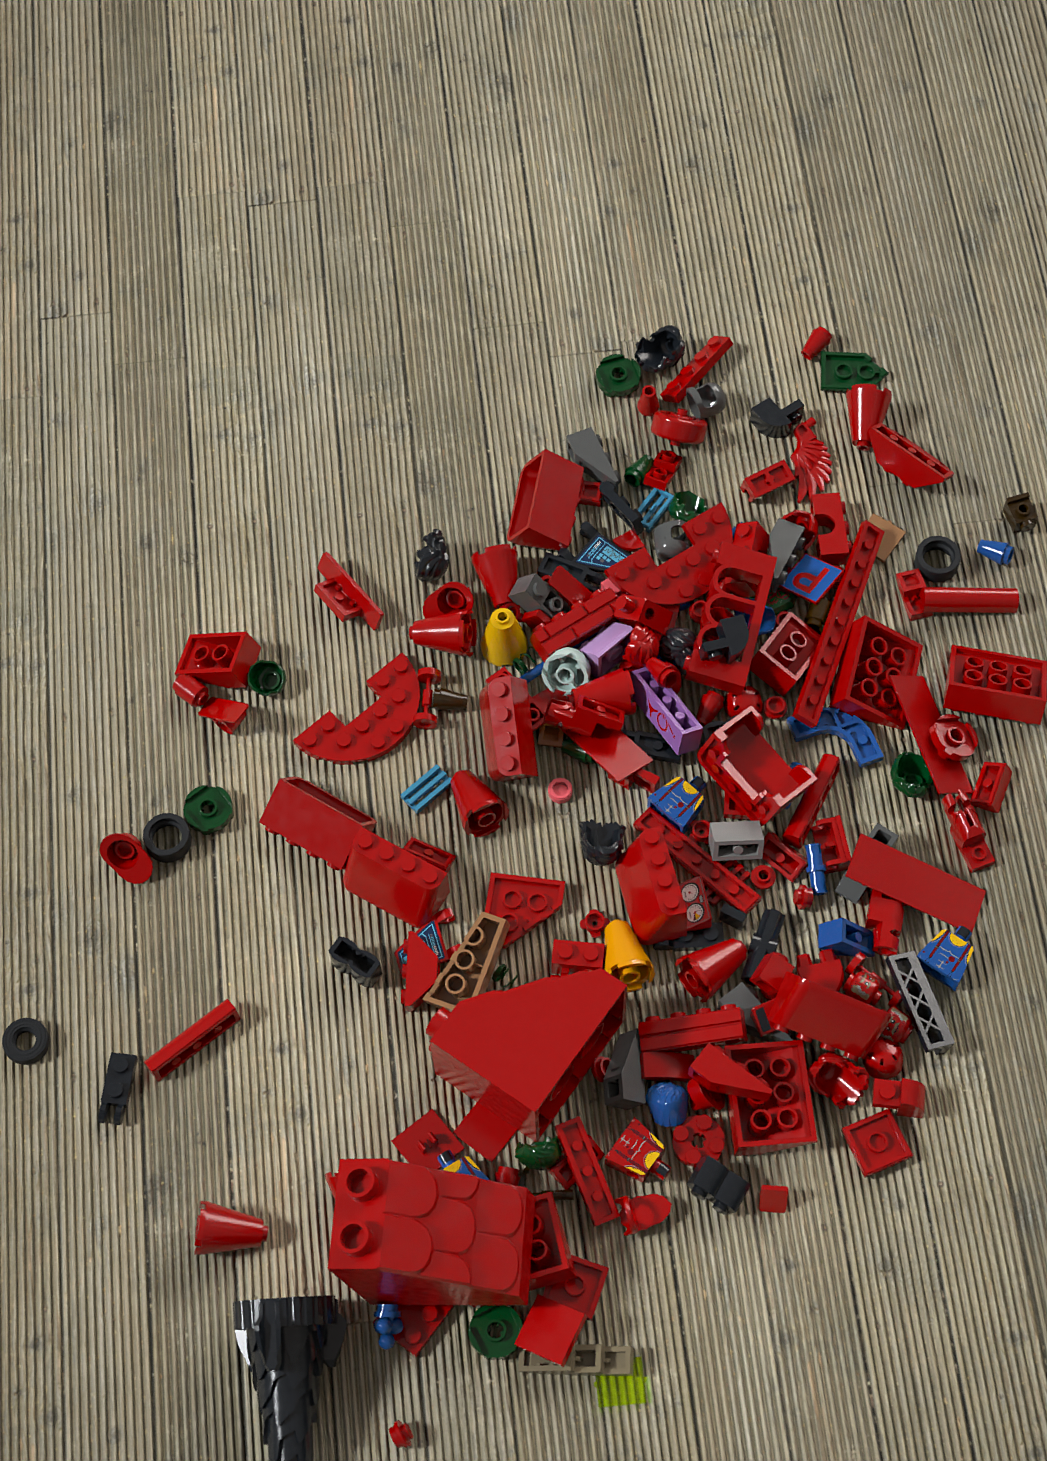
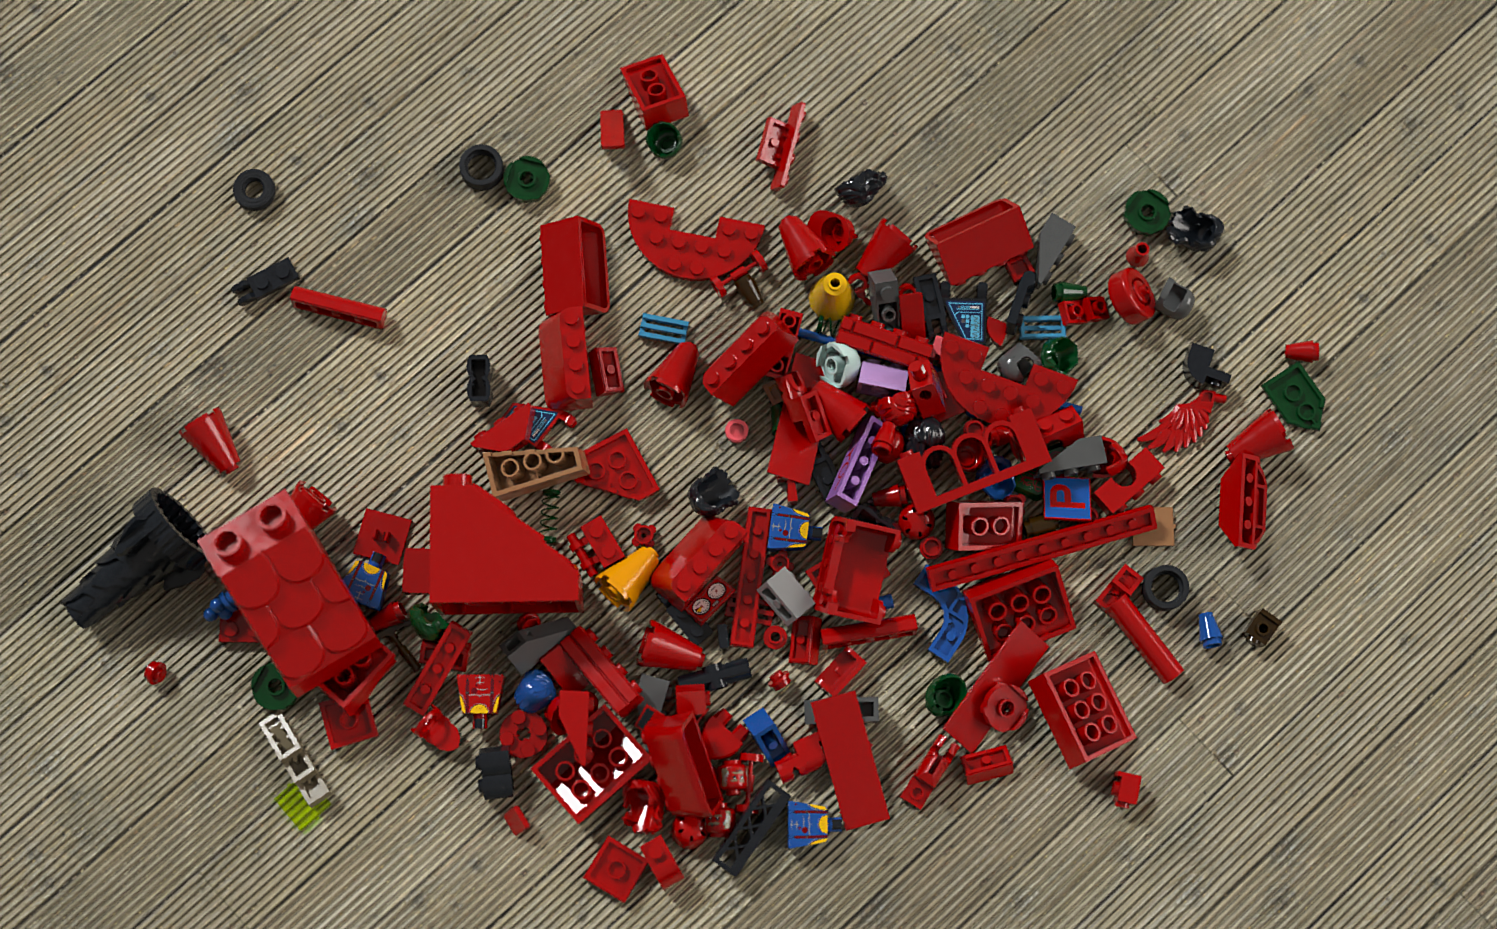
camera: 45 degrees right, 15 degrees up
(126, 857) = (444, 149): red piece -> none
(190, 690) = (613, 91): red brick -> none
(535, 618) = (867, 309): red tile -> none
(550, 1330) = (297, 726): red tile -> none
(696, 369) = (1201, 271): red plate -> none
(732, 640) = (946, 478): black brick -> none
(767, 480) = (1134, 402): red hinge -> none
(816, 869) = (809, 674): blue pin -> none

